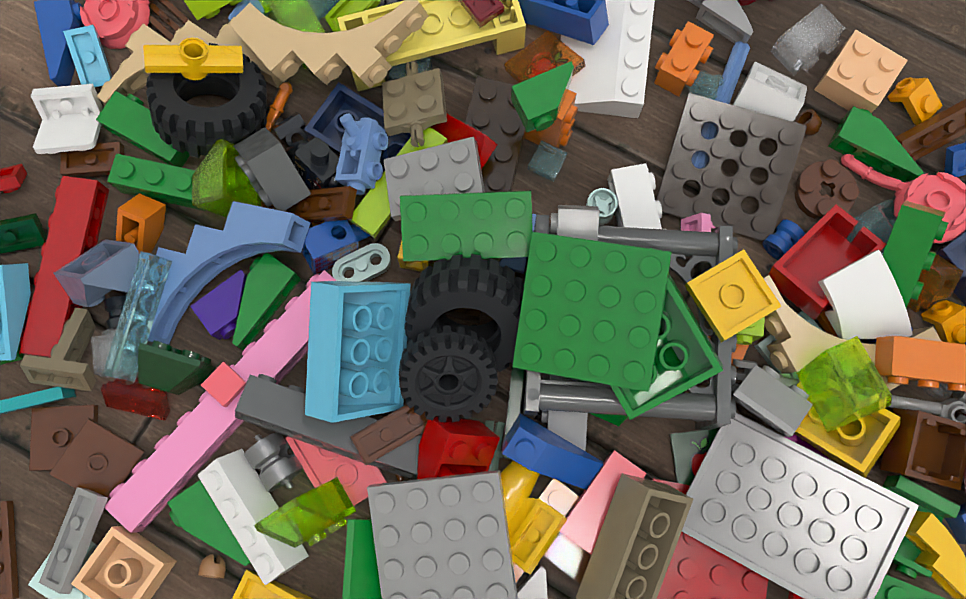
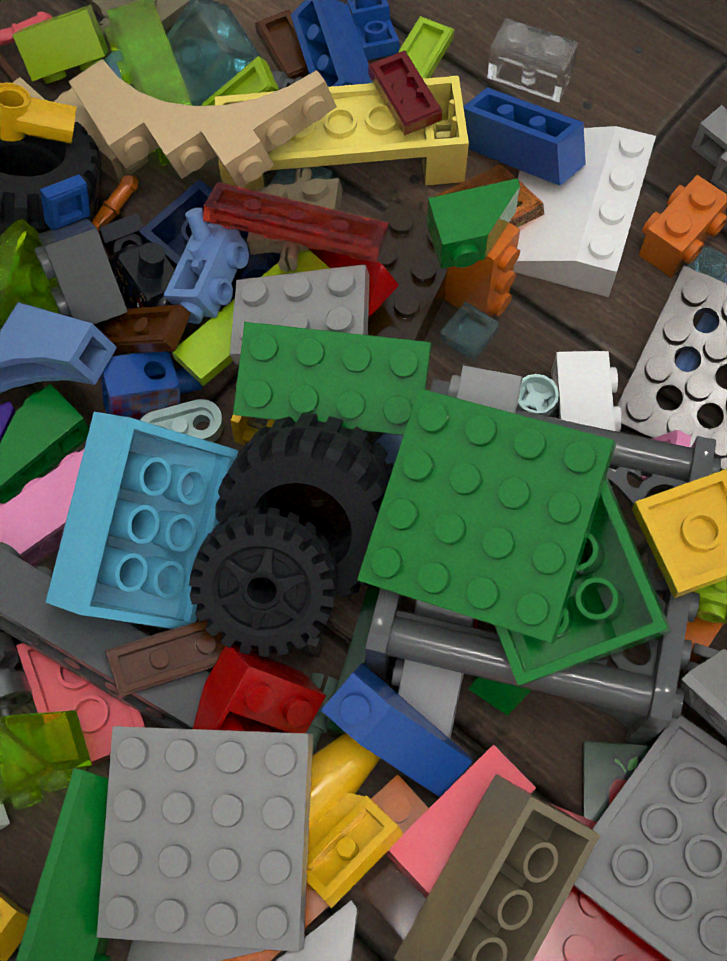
camera: 10 degrees right, 10 degrees down
(250, 121) = (65, 202): none -> blue tile
(418, 112) = (295, 222): none -> clear red plate

